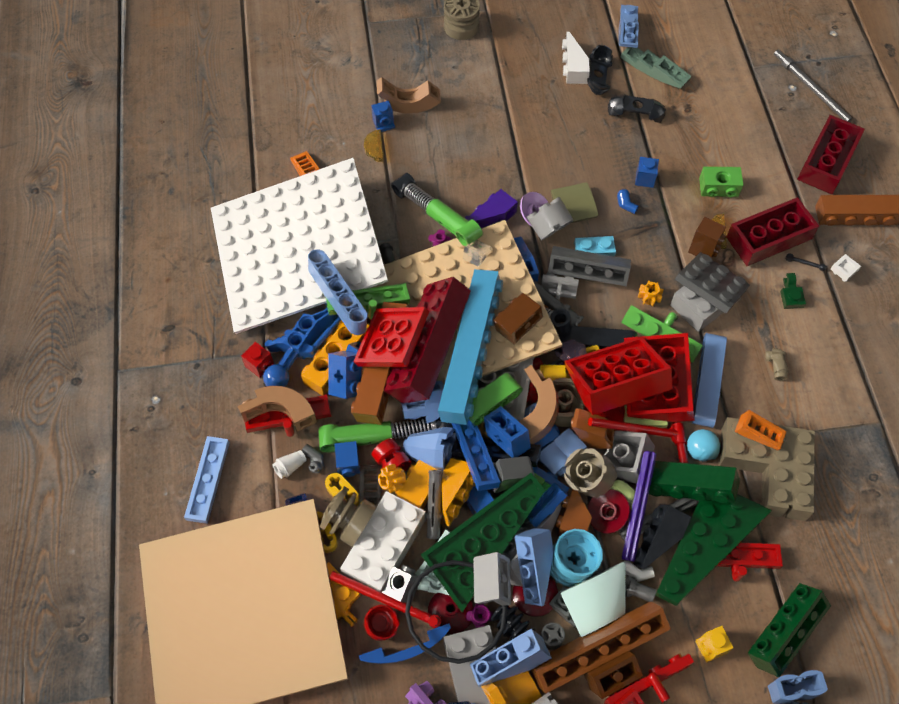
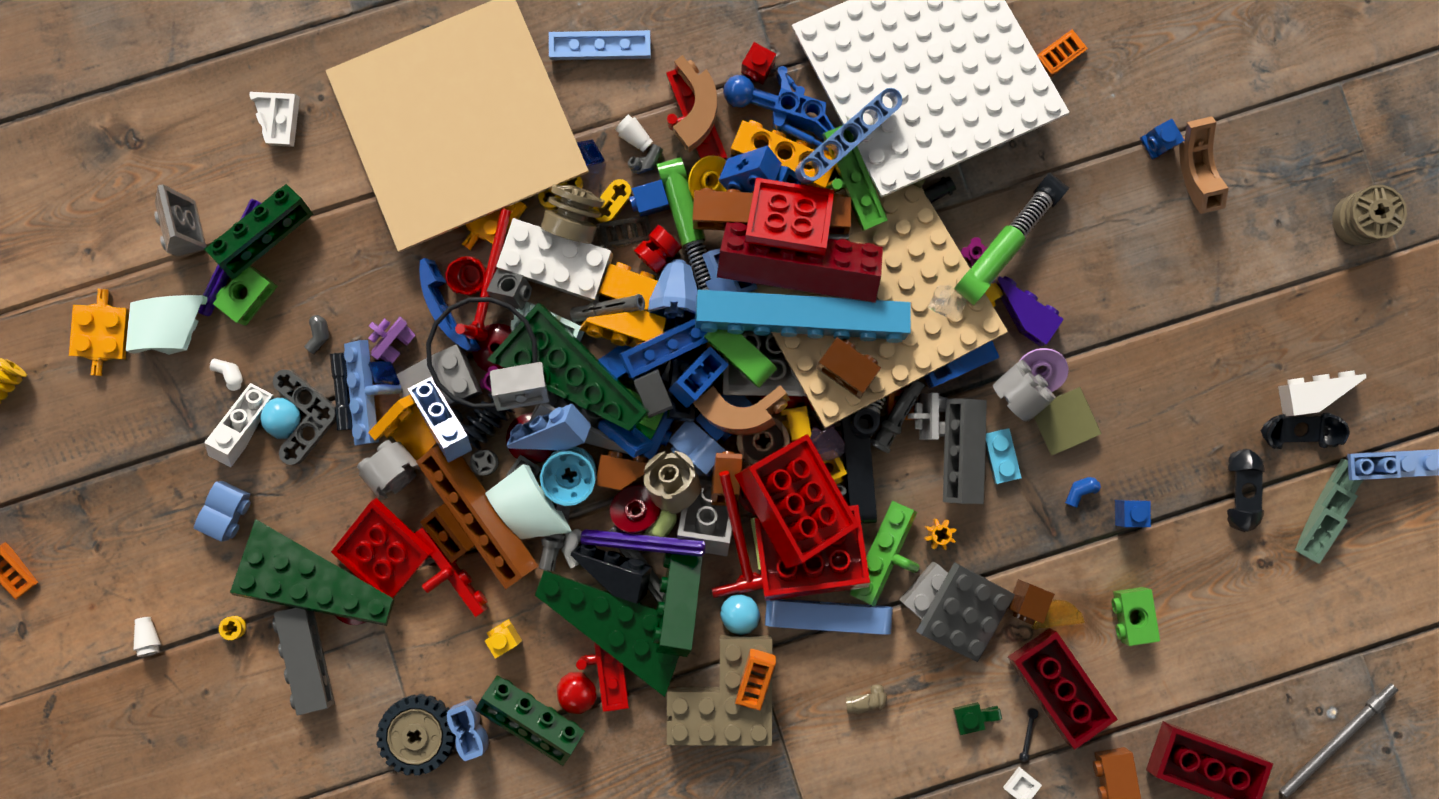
camera: 80 degrees right, 25 degrees up
(340, 409) = (706, 166): none -> yellow dish
(373, 145) = (1114, 136): clear yellow tile -> none
(392, 478) = (625, 254): light orange gear -> none
(764, 589) = (576, 693): none -> red hair

